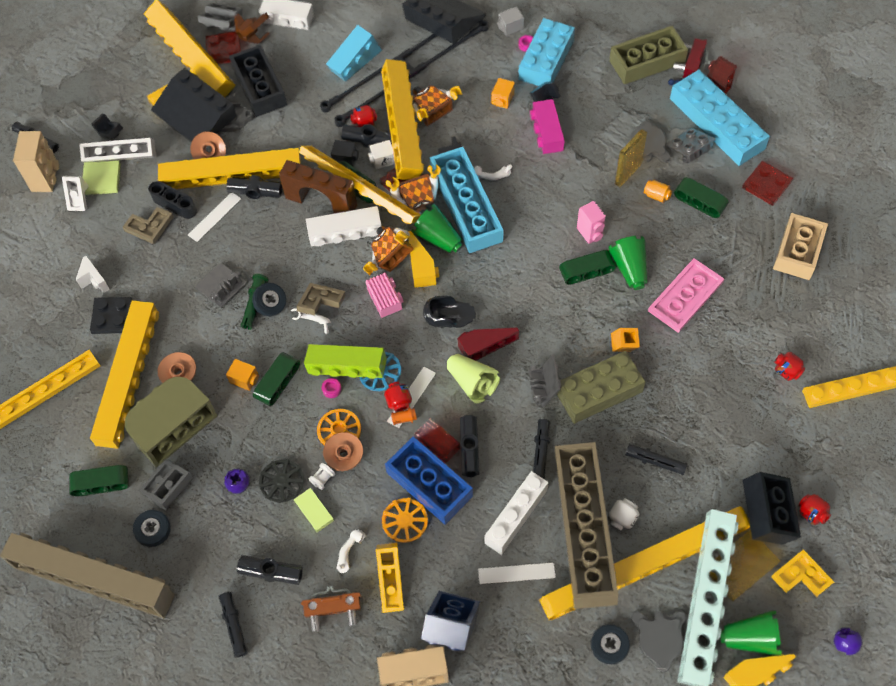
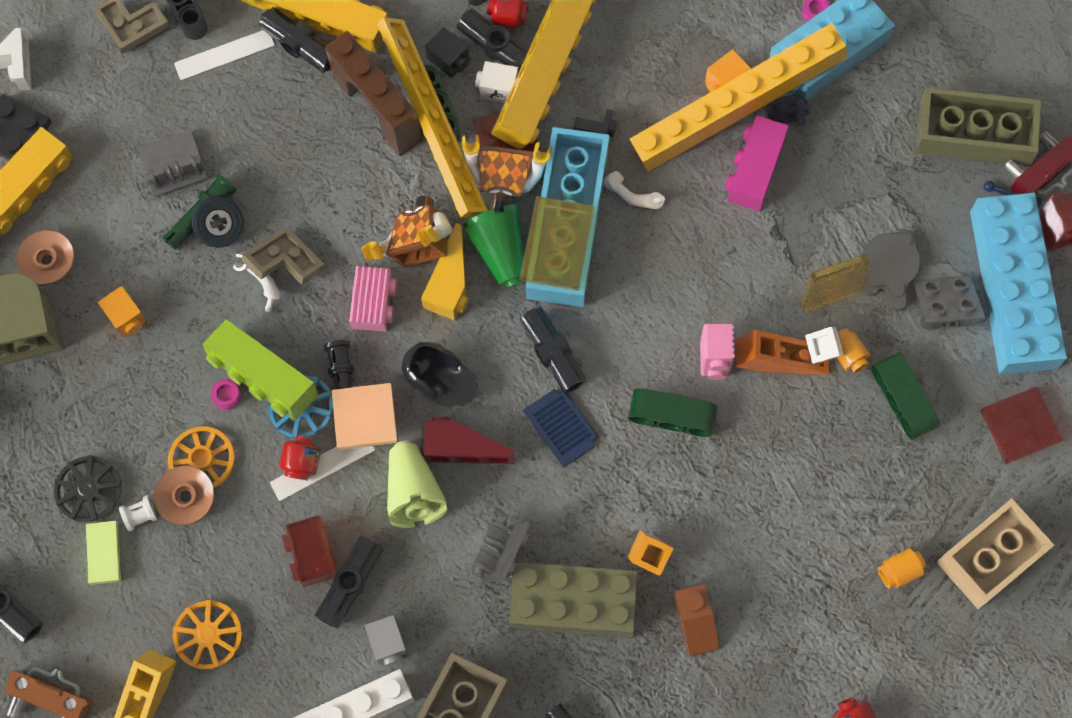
camera: 30 degrees right, 10 degrees up
(233, 475) = (21, 462): dark purple piece -> none
(276, 379) = (162, 342): dark green beam -> none
(343, 226) = (379, 165): white brick -> none
(343, 561) = (95, 649): white piece -> none
(391, 341) = (339, 362): none -> black pin
(403, 416) = (292, 490): orange pin -> none
(421, 354) = (364, 416): none -> light nougat tile
(429, 480) = (265, 601): blue brick -> none
(433, 103) = (615, 38): torso -> none
(472, 210) = (557, 243): none -> clear yellow tile
(501, 269) = (552, 350): none -> black piece
(511, 464) = (386, 641): none -> light grey brick
(519, 97) = (740, 97): none -> yellow brick
(531, 306) = (561, 426): none -> dark blue window
(542, 440) = (444, 636): black pin -> none
(624, 209) = (776, 354): none -> orange slope
(631, 260) = (737, 440): green cone -> none
(644, 192) = (824, 345): none -> white plate
(671, 361) = (696, 620): none -> dark orange slope
(686, 295) = (783, 532): bright pink plate -> none
(758, 279) = (902, 568): none -> light orange brick

